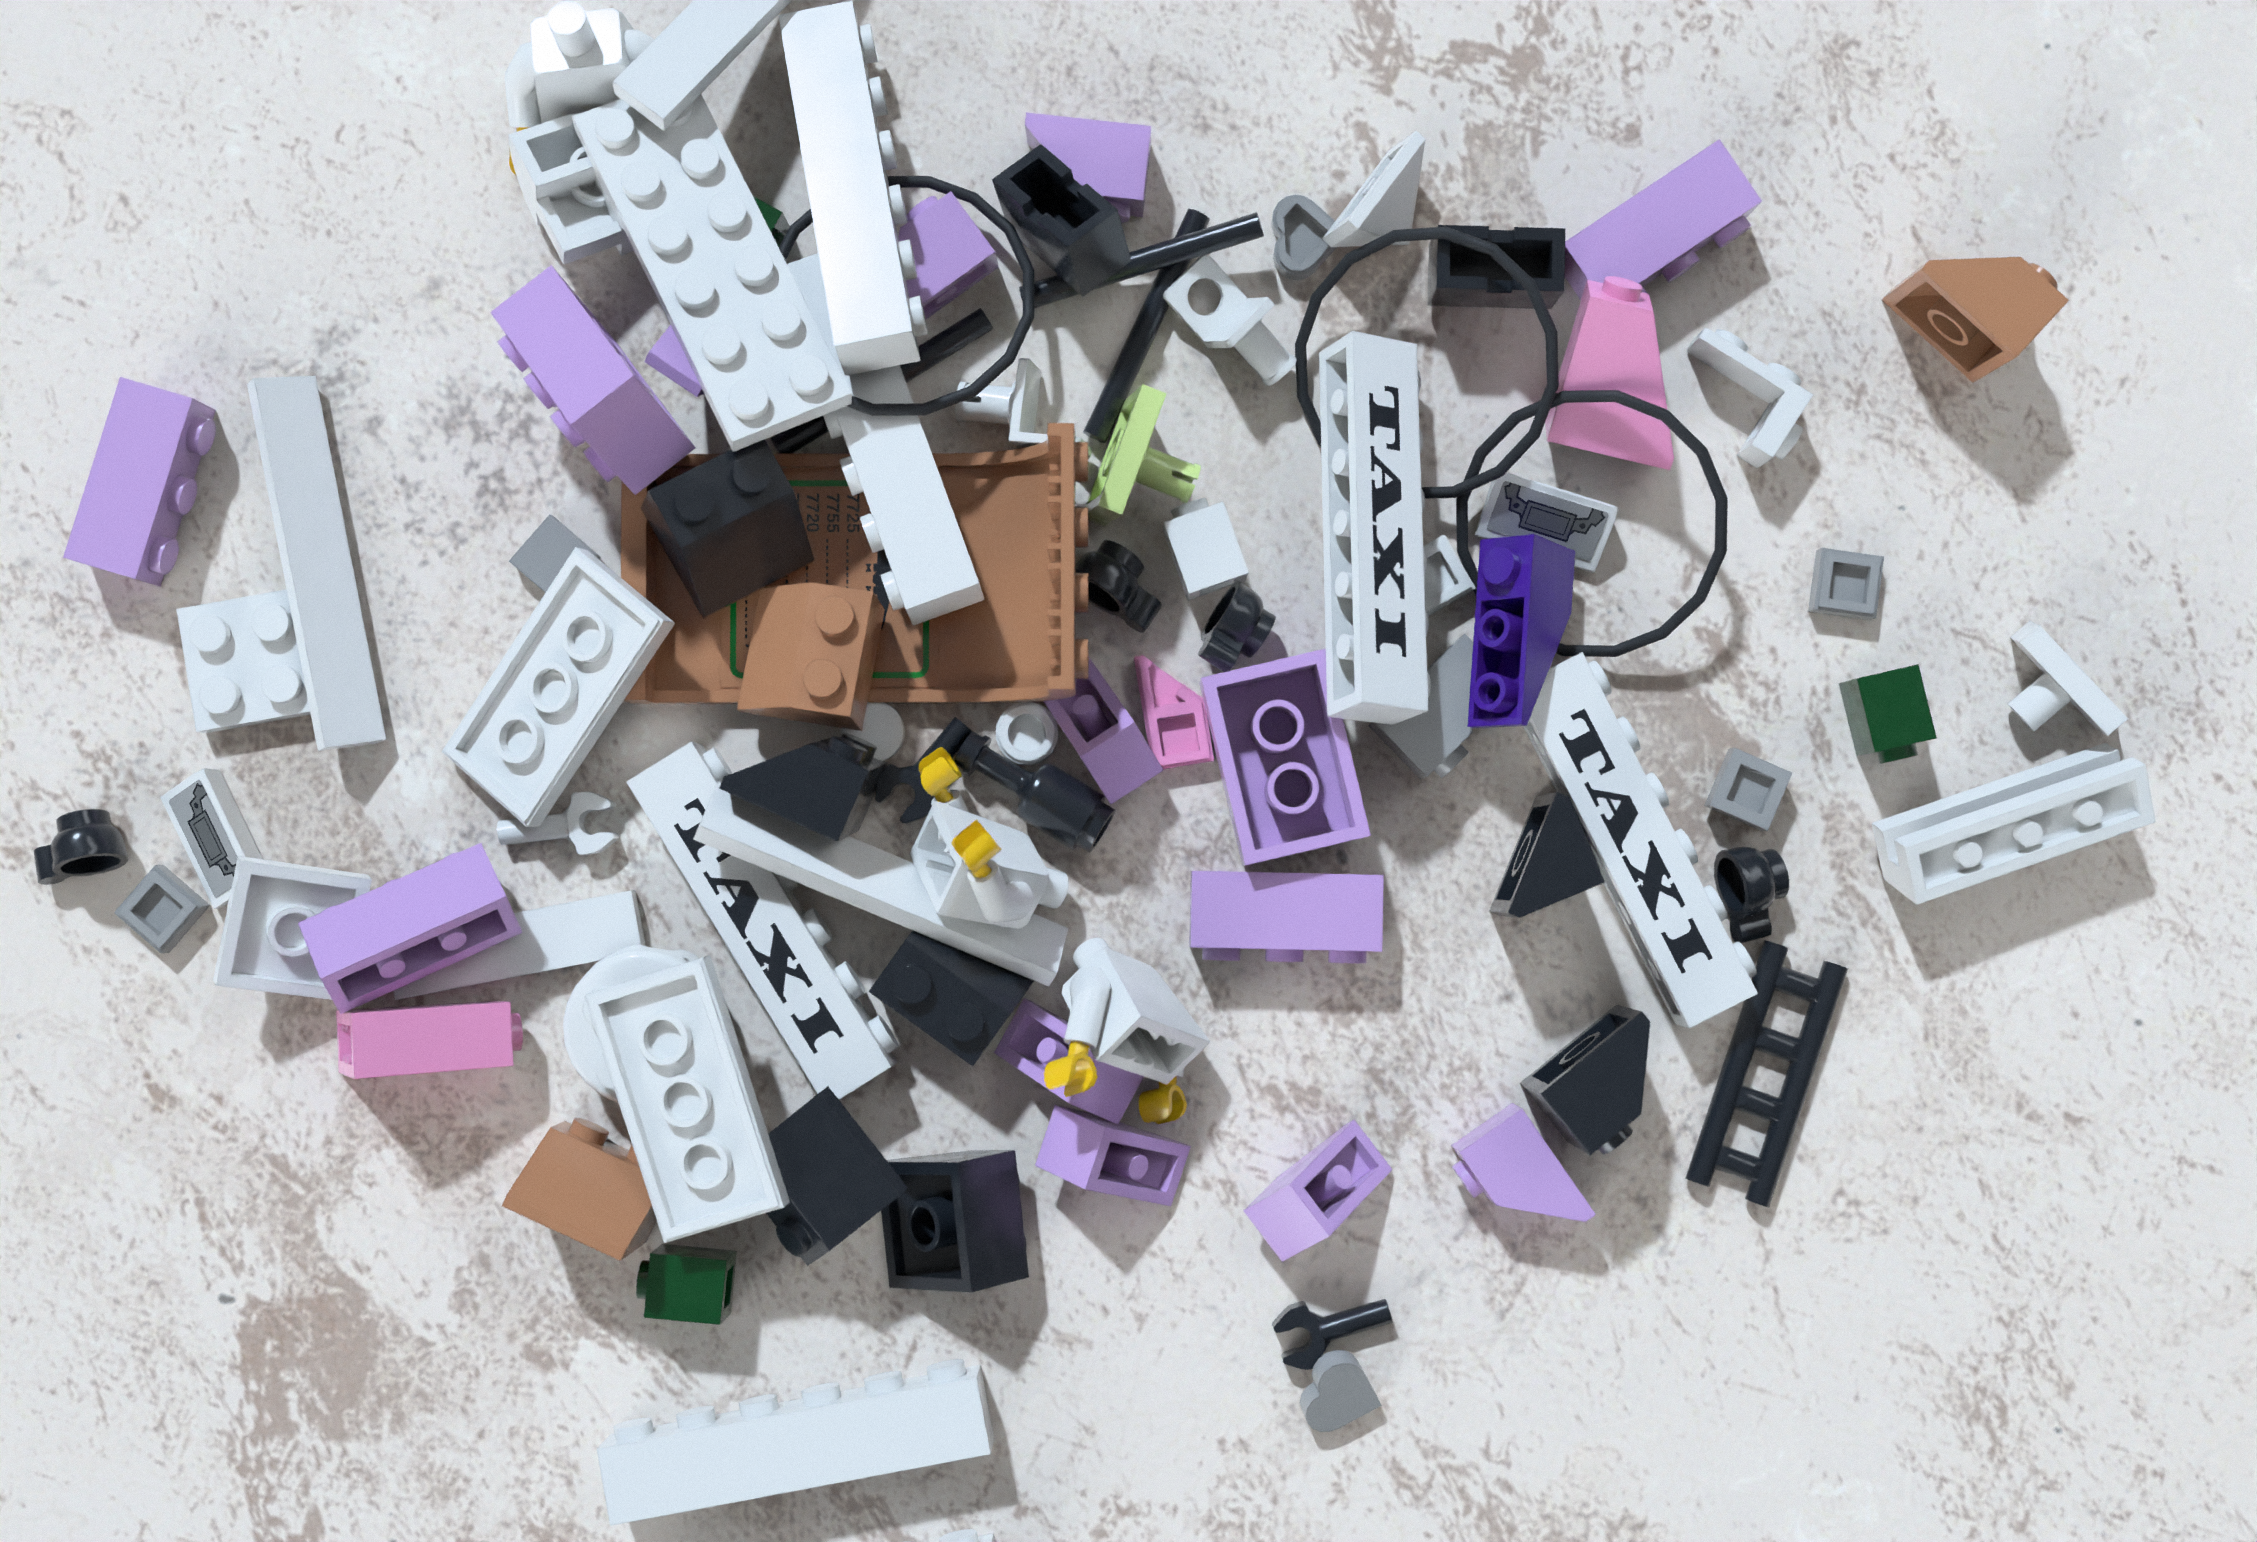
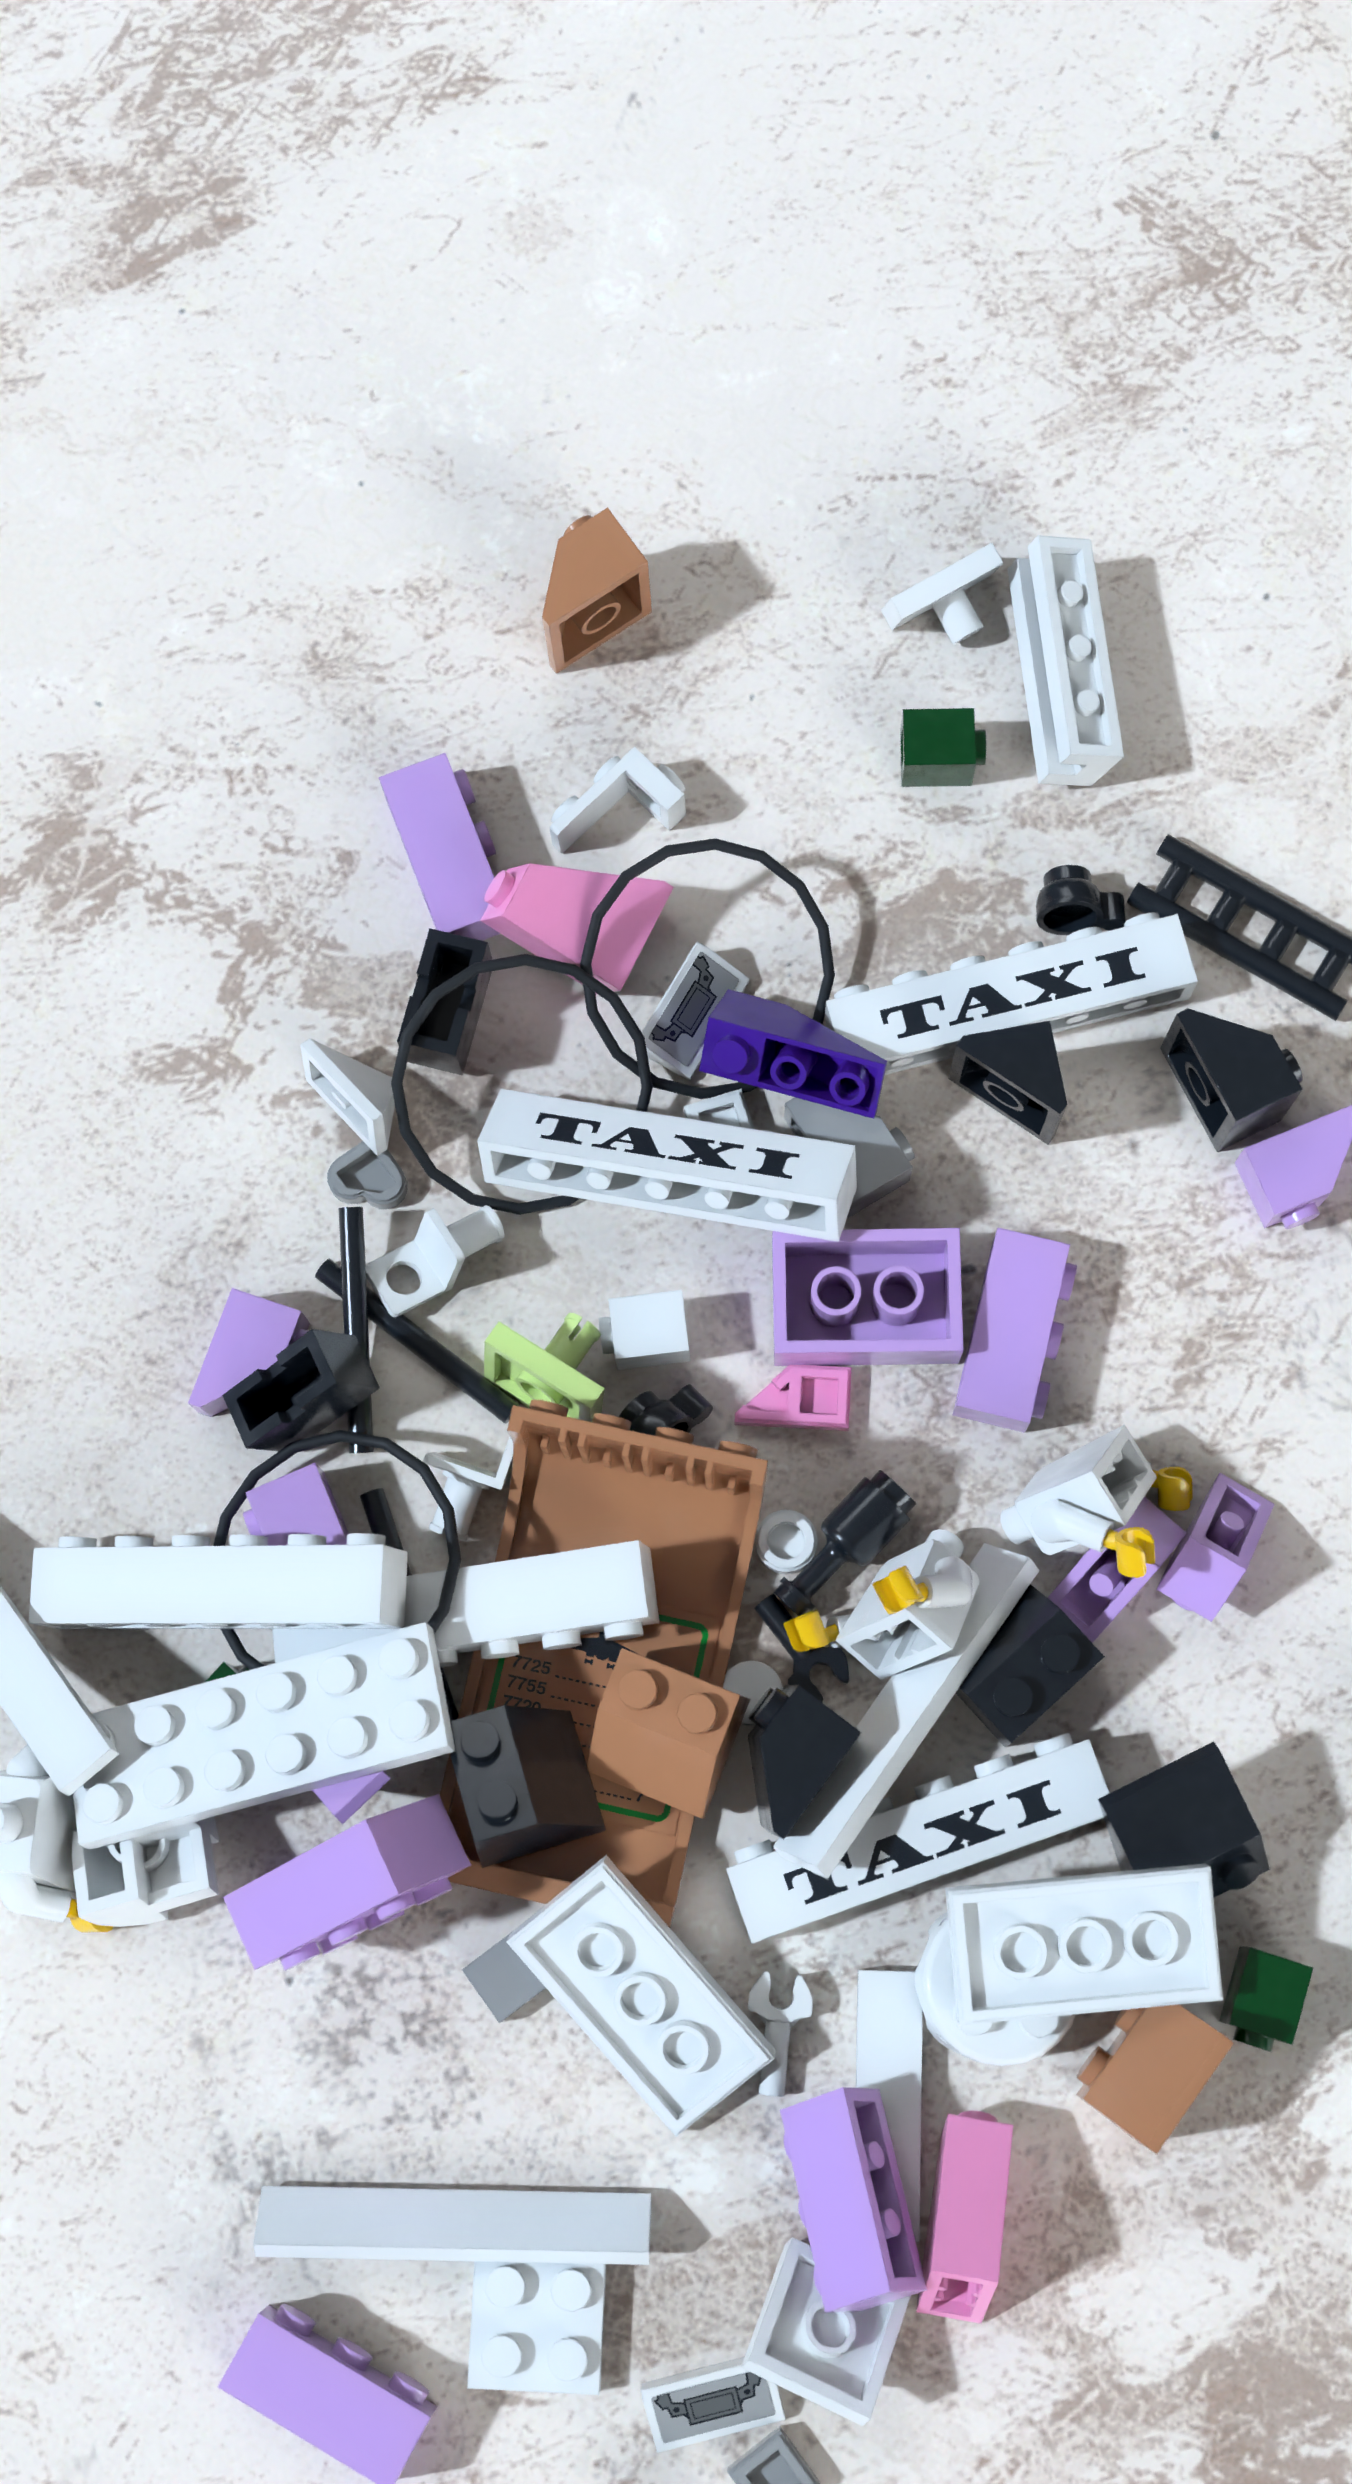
camera: 75 degrees left, 10 degrees down
(956, 1222) = (1258, 1709): black slope -> none
(1105, 736) = (813, 1463): lavender slope -> none
(1235, 627) = (729, 1317): black piece -> none
(1318, 1192) = (1287, 1358): lavender slope -> none
(1748, 789) = (984, 885): light grey plate -> none
(1846, 584) = (811, 759): light grey tile -> none

